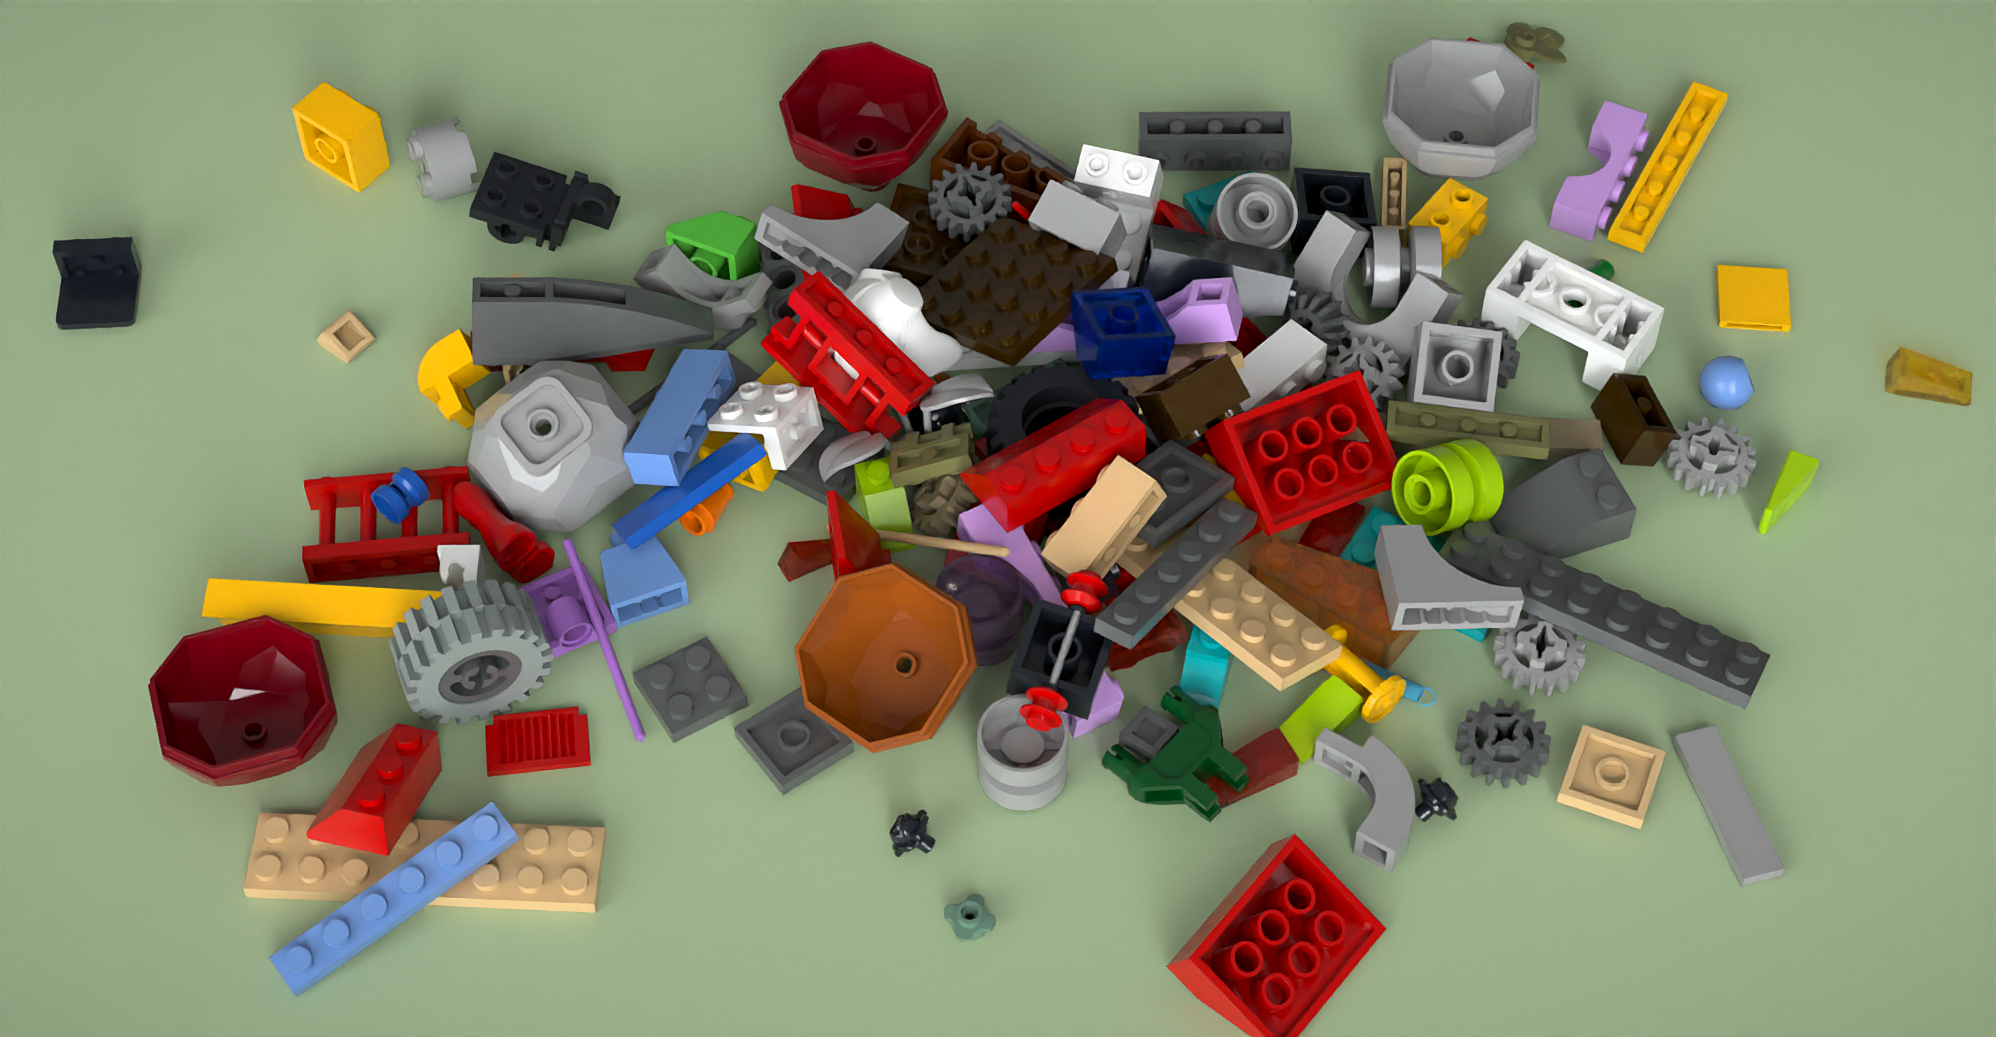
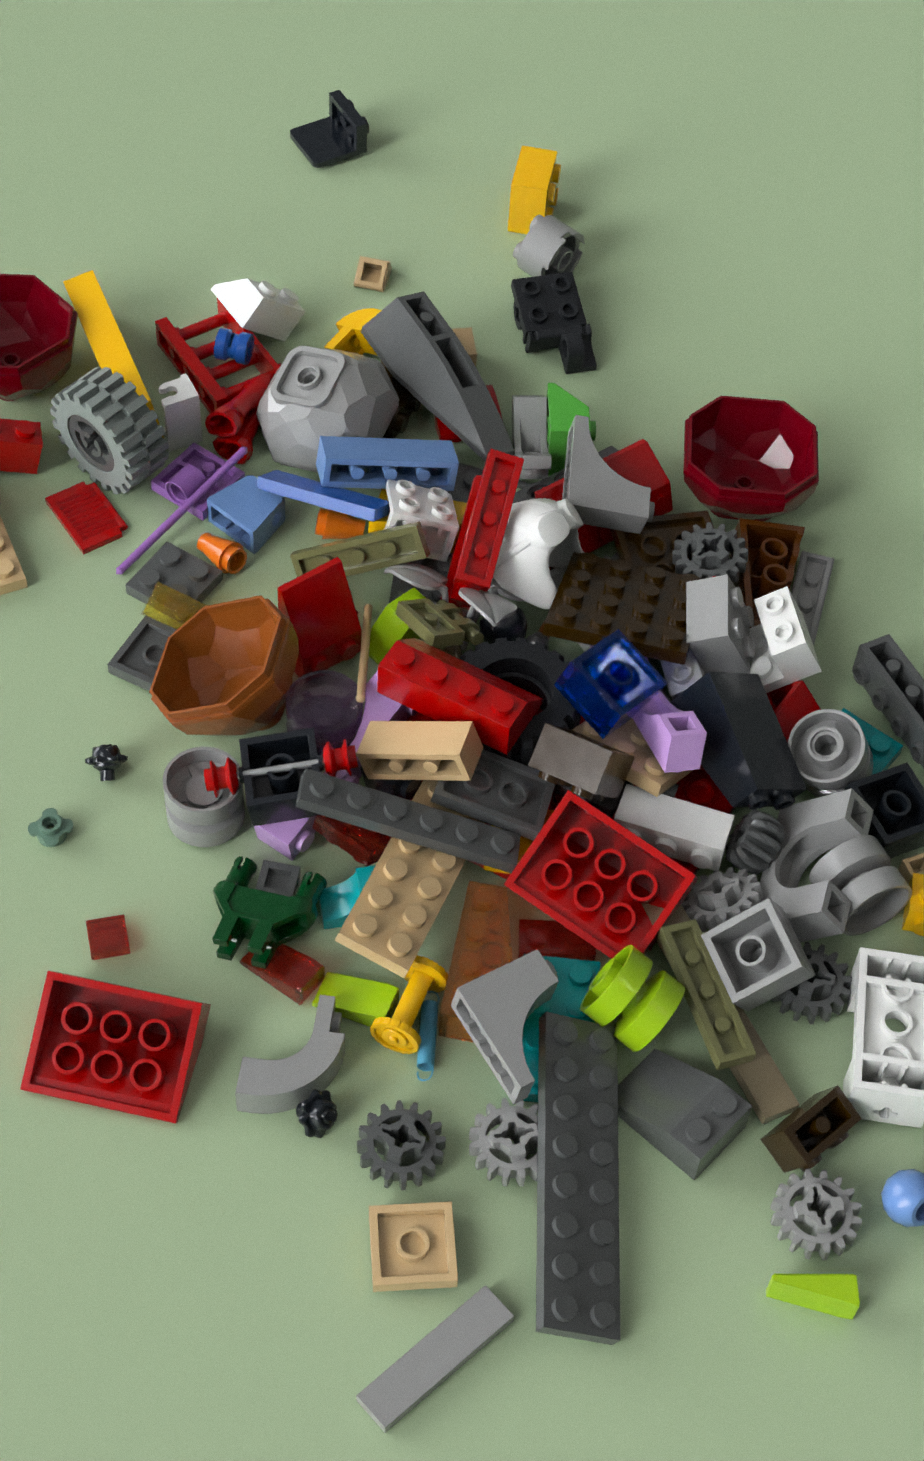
camera: 60 degrees right, 0 degrees up
(350, 450) = (261, 306): none -> white slope
(680, 627) = (223, 553): none -> orange cone
(746, 694) = (170, 606): none -> clear yellow slope
(784, 492) = (367, 551): none -> olive plate
(1135, 912) = (108, 937): none -> clear red tile

